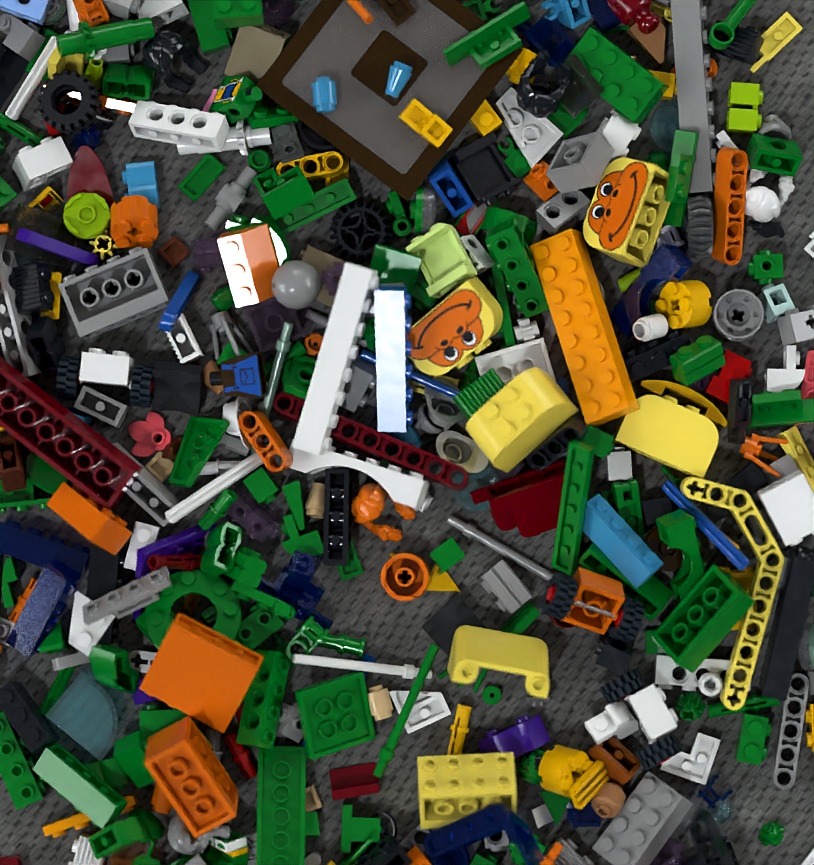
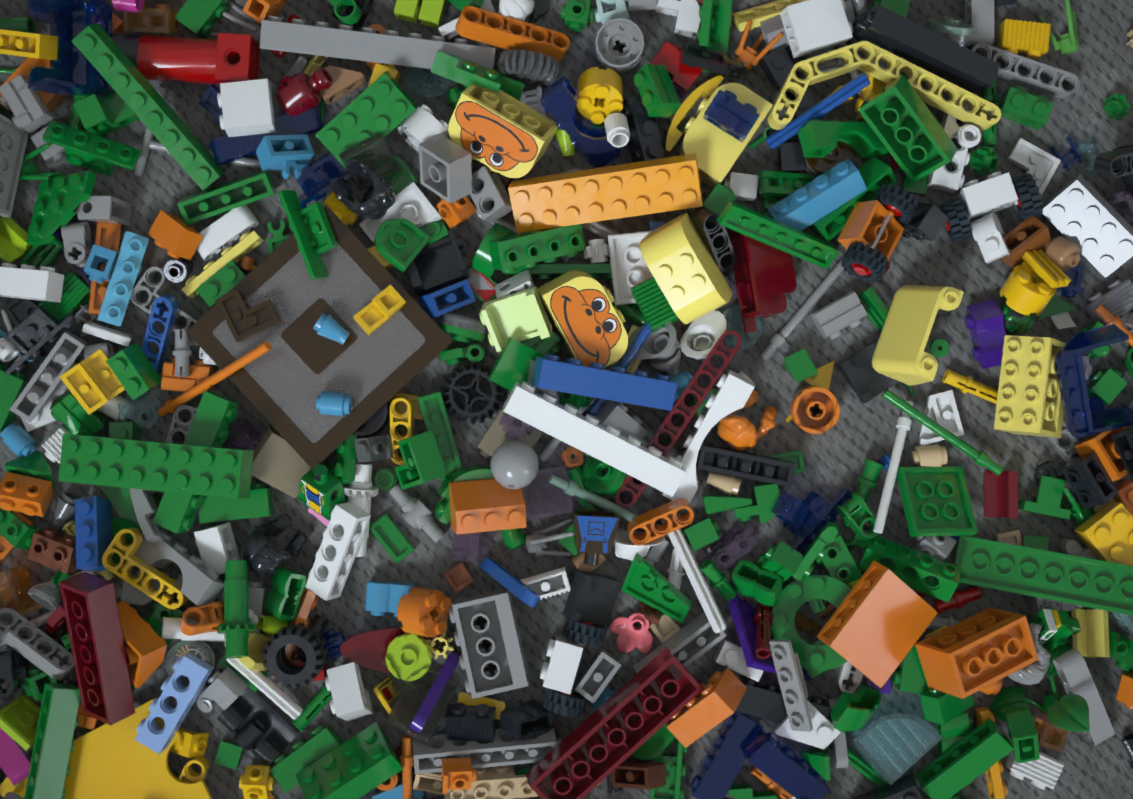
camera: 80 degrees left, 0 degrees up
(498, 131) = (400, 242): none -> green tile
(682, 437) = (731, 115): none -> clear blue brick

